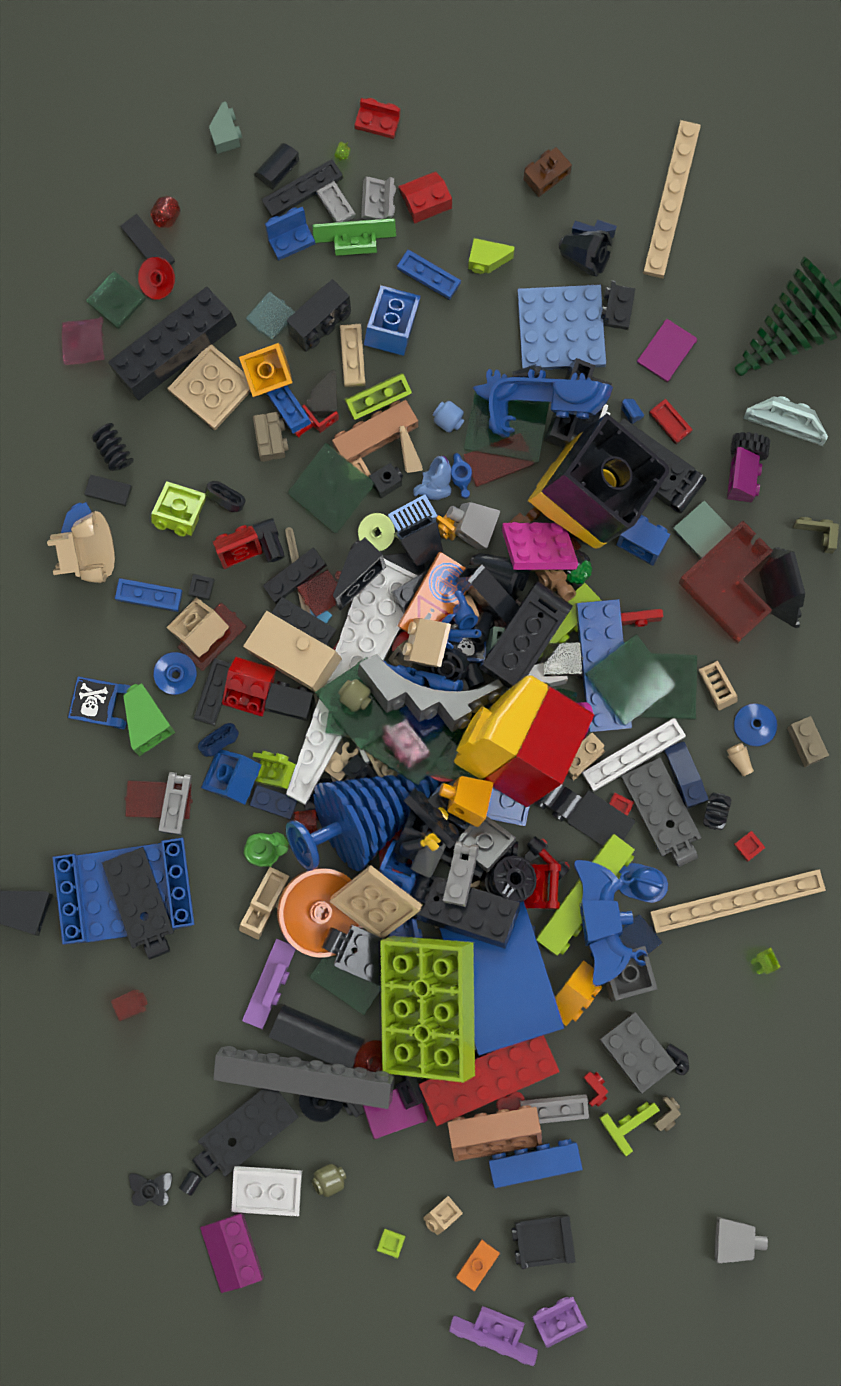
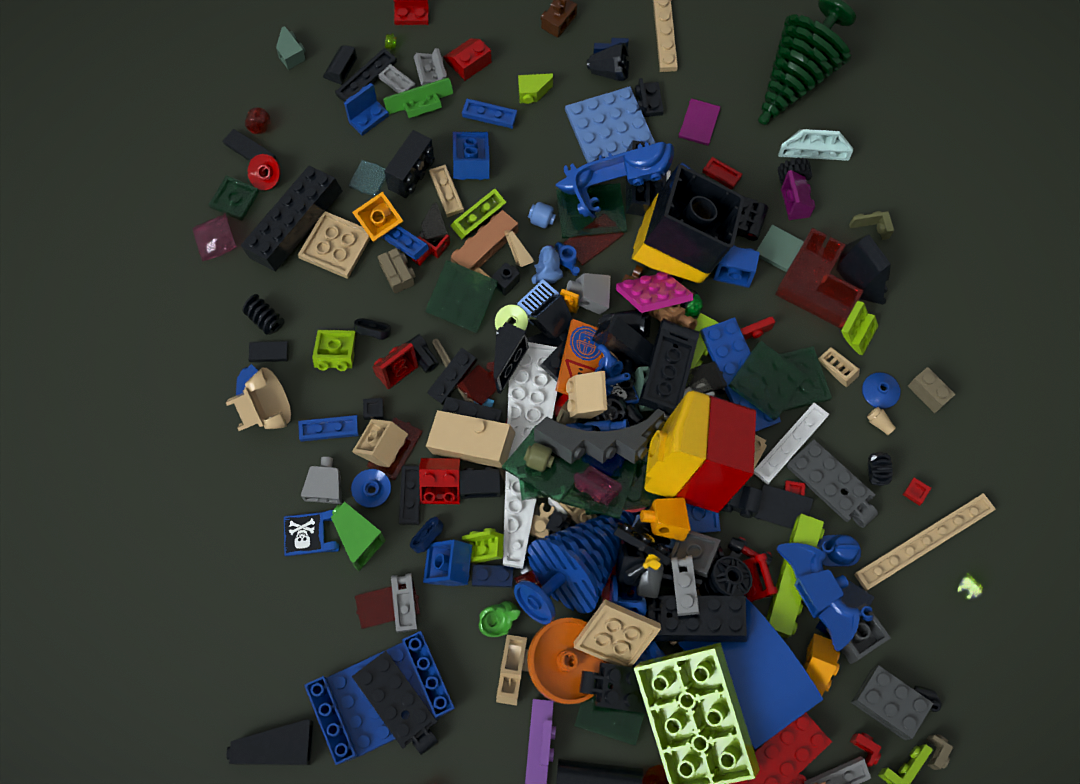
camera: 20 degrees left, 10 degrees down
(127, 653) = (323, 483): none -> light grey torso
(686, 775) = (842, 447): dark blue slope -> none
(755, 650) = (859, 328): none -> lime slope

